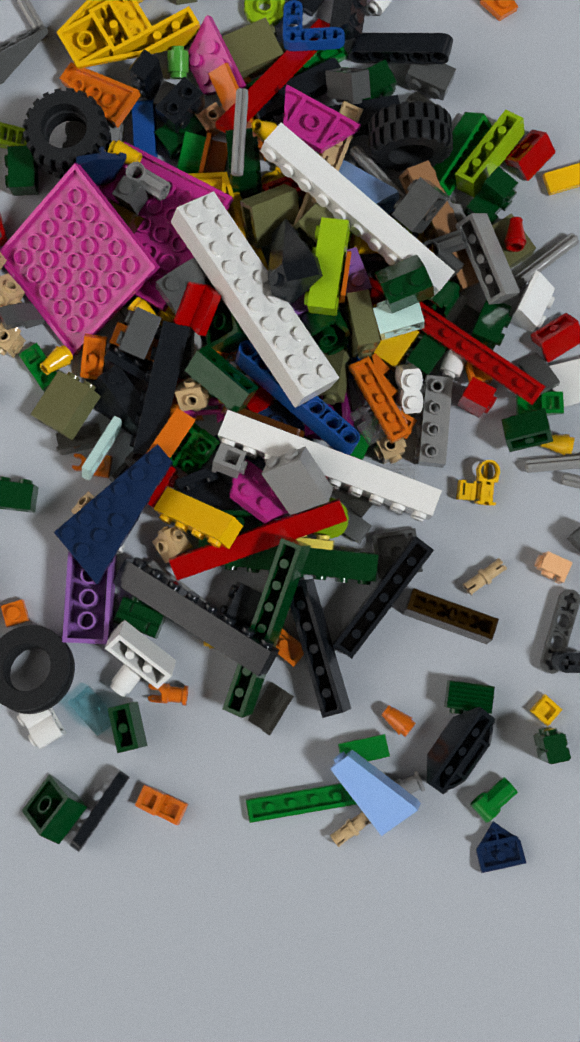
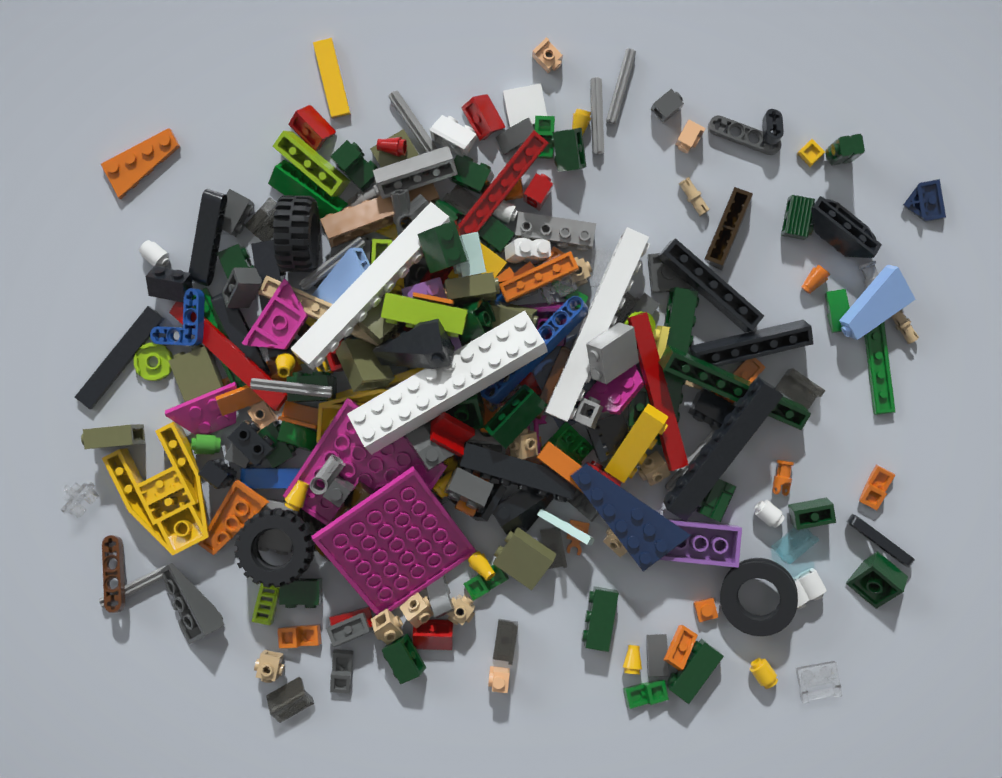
camera: 85 degrees left, 5 degrees up
(93, 356) = (481, 532): orange plate -> none
(103, 166) = (312, 516): dark blue slope -> none
(140, 654) = (751, 499): white brick -> none
(419, 205) = (365, 226): dark grey brick -> none
(483, 490) = (618, 194): yellow piece -> none
(489, 803) = (888, 206): green piece -> none

